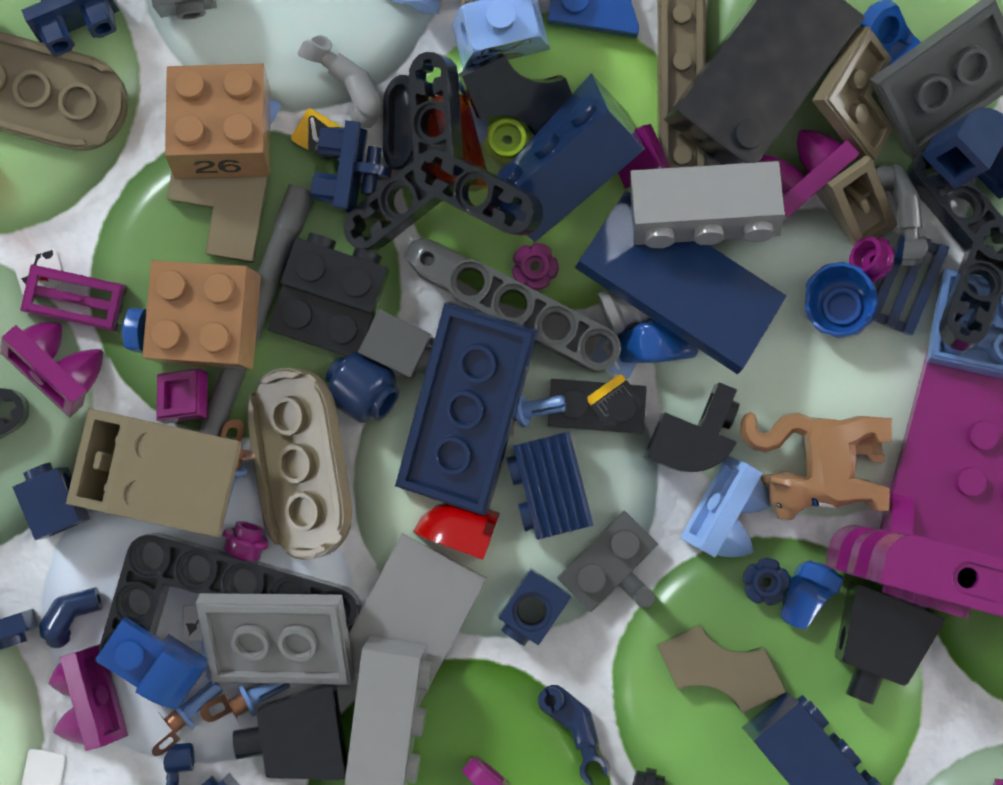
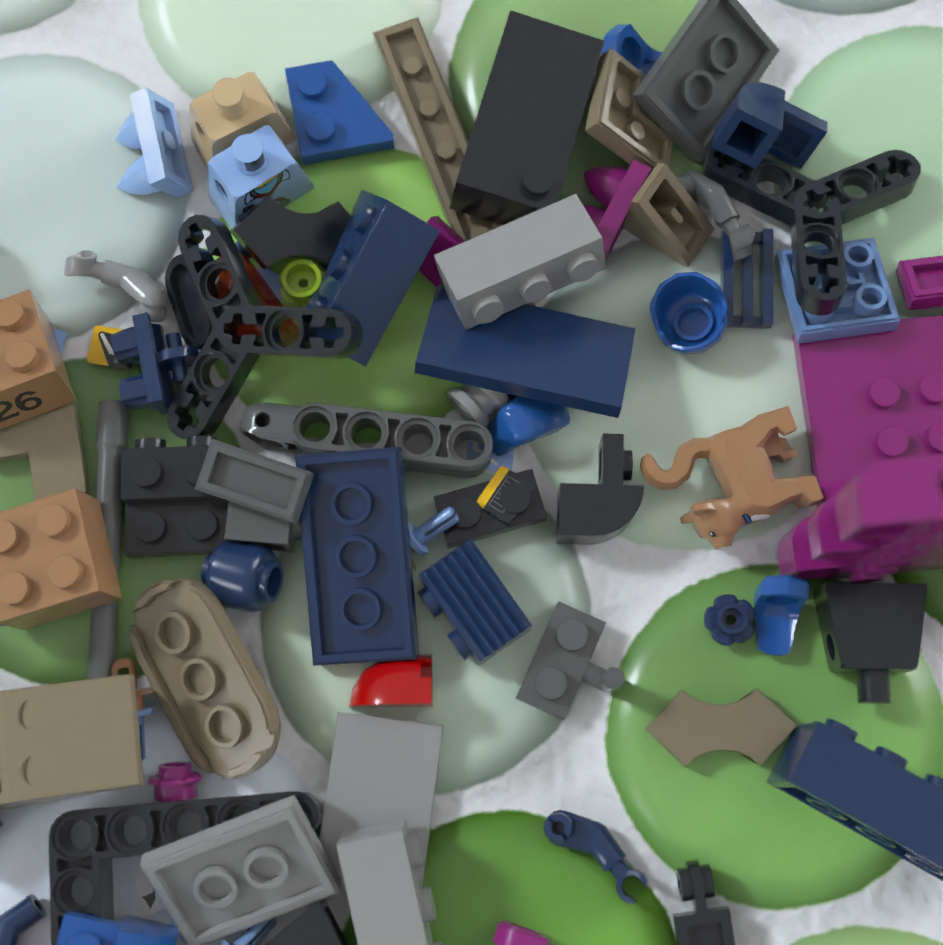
camera: 25 degrees left, 10 degrees down
(182, 396) = (58, 653): magenta tile -> none
(401, 313) = (254, 481): none -> dark grey tile
(536, 253) = (375, 379): magenta plate -> none
(537, 586) = (509, 713): dark blue brick -> none
(715, 523) = (658, 543): light blue tile -> none
(873, 257) = (705, 260): magenta plate -> none

